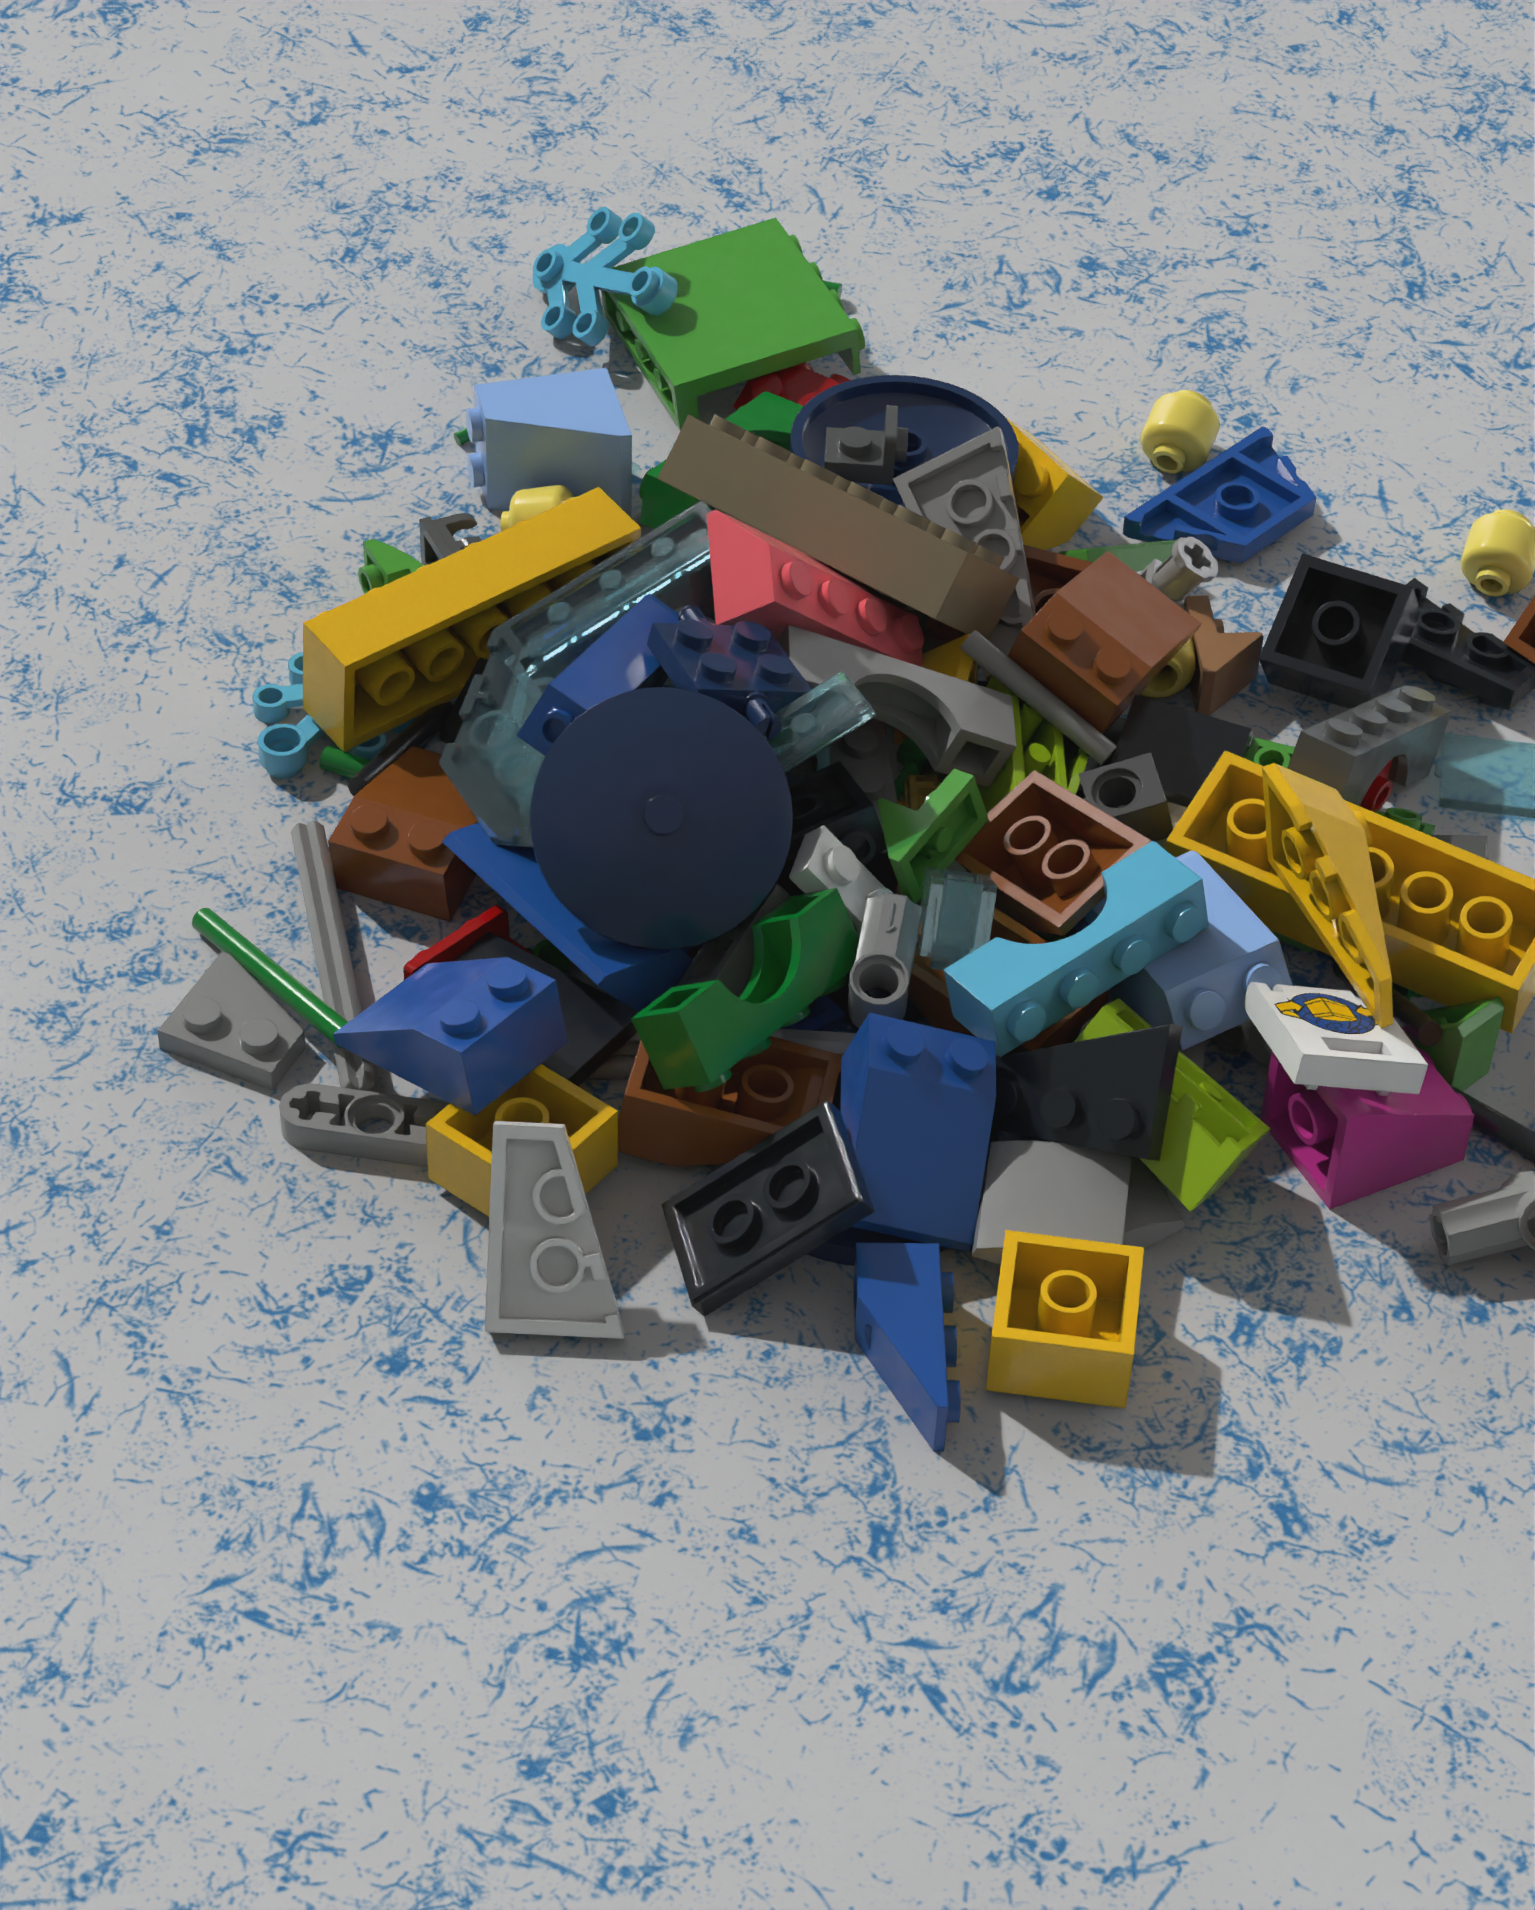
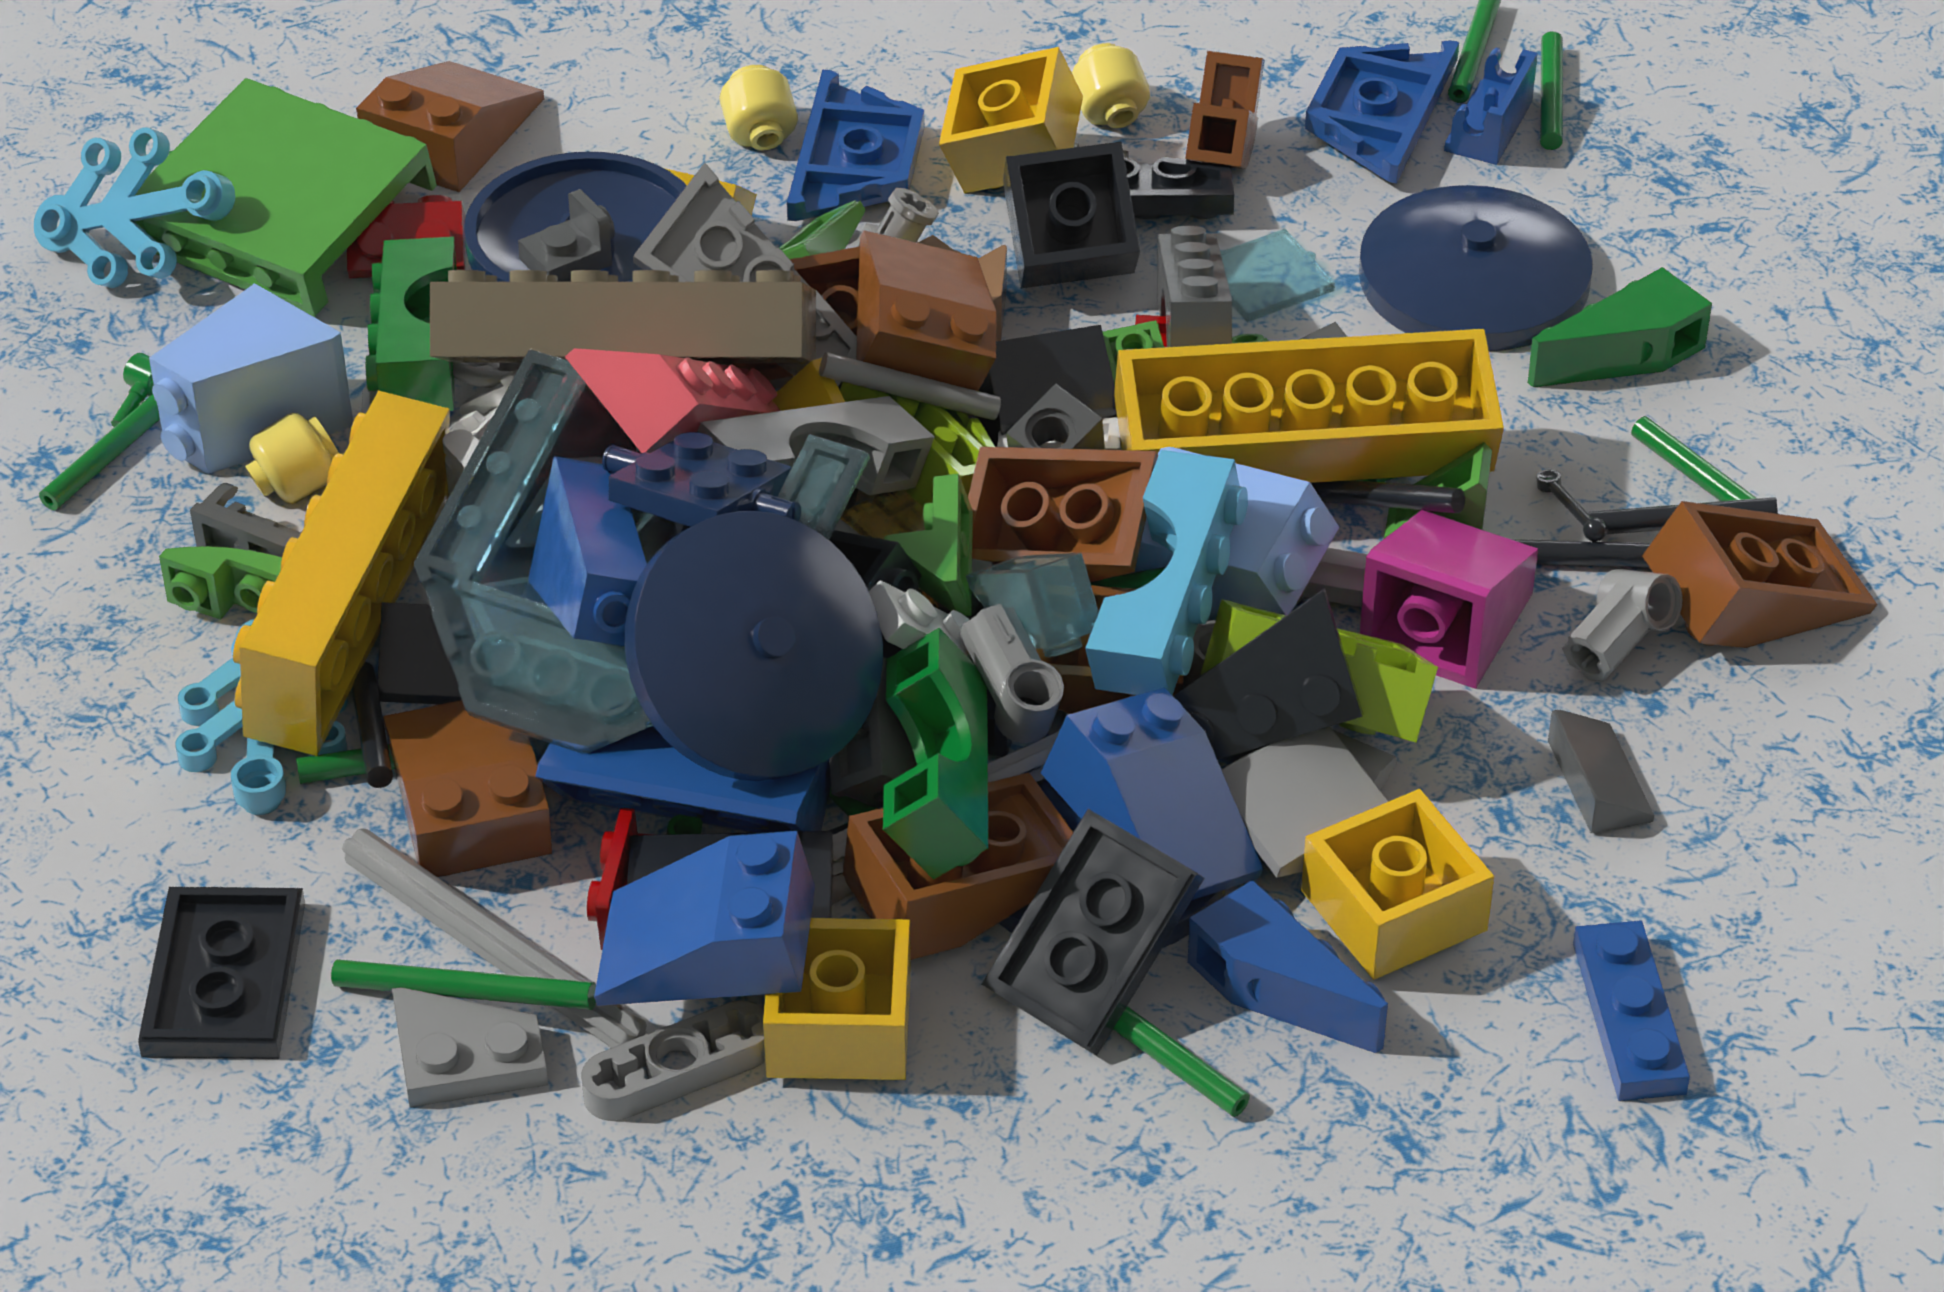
camera: 35 degrees left, 0 degrees up
(126, 873) = (222, 973): none -> black tile
(410, 456) = (100, 454): none -> green piece
(542, 1240) = (949, 1068): white wing -> none
(760, 1360) = (1182, 1062): none -> green piece
(926, 323) = (454, 111): none -> dark orange slope
(1182, 1547) = (1630, 1011): none -> blue plate
(1312, 1023) = (1404, 536): white container -> none
(1327, 868) = (1315, 410): yellow wedge -> none
(1360, 1335) = (1597, 772): none -> dark grey slope
(1377, 527) = (1006, 111): none -> yellow brick

